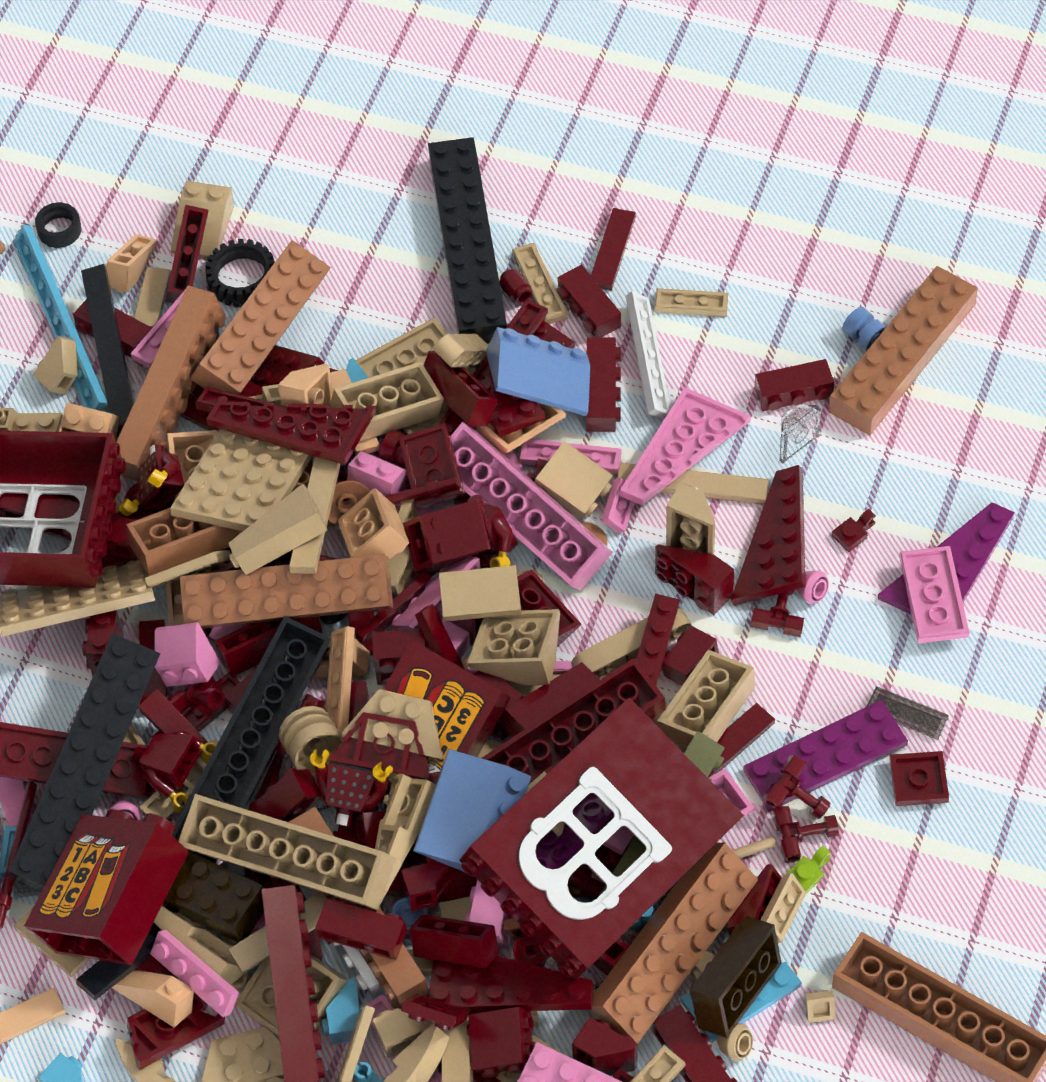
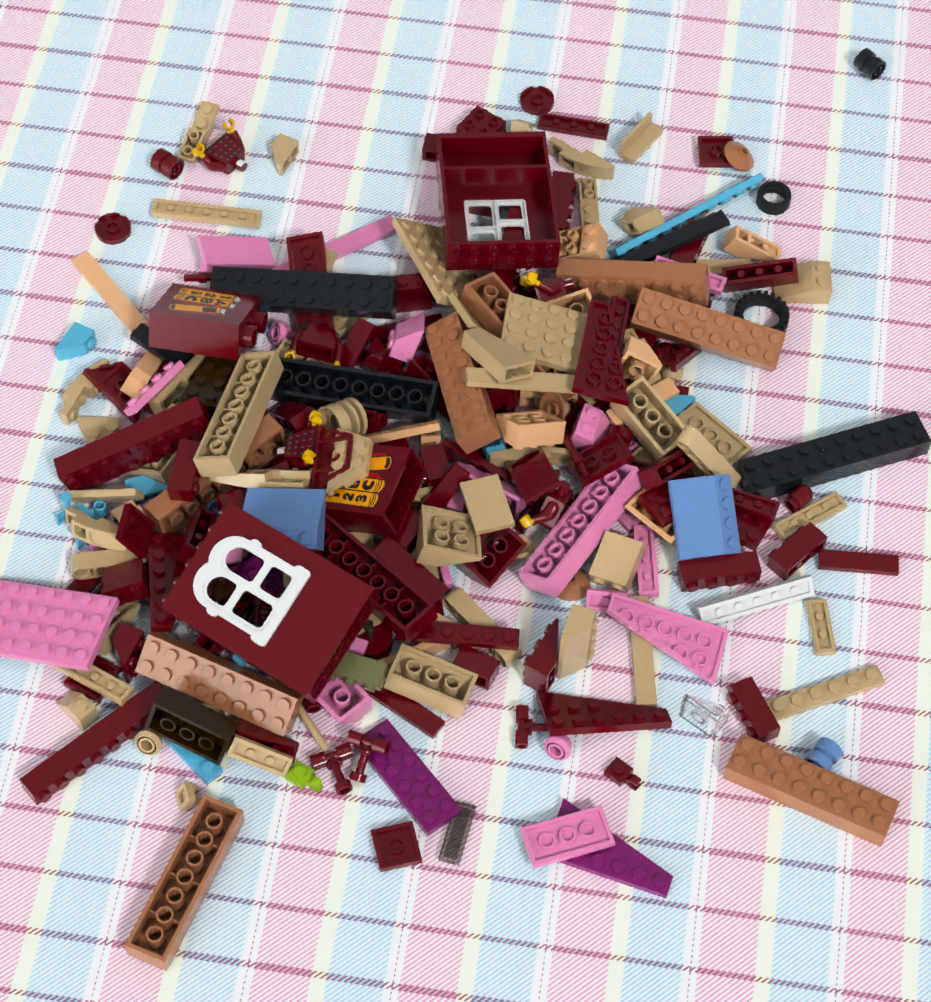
camera: 75 degrees right, 0 degrees up
(777, 311) = (826, 692): none -> tan plate

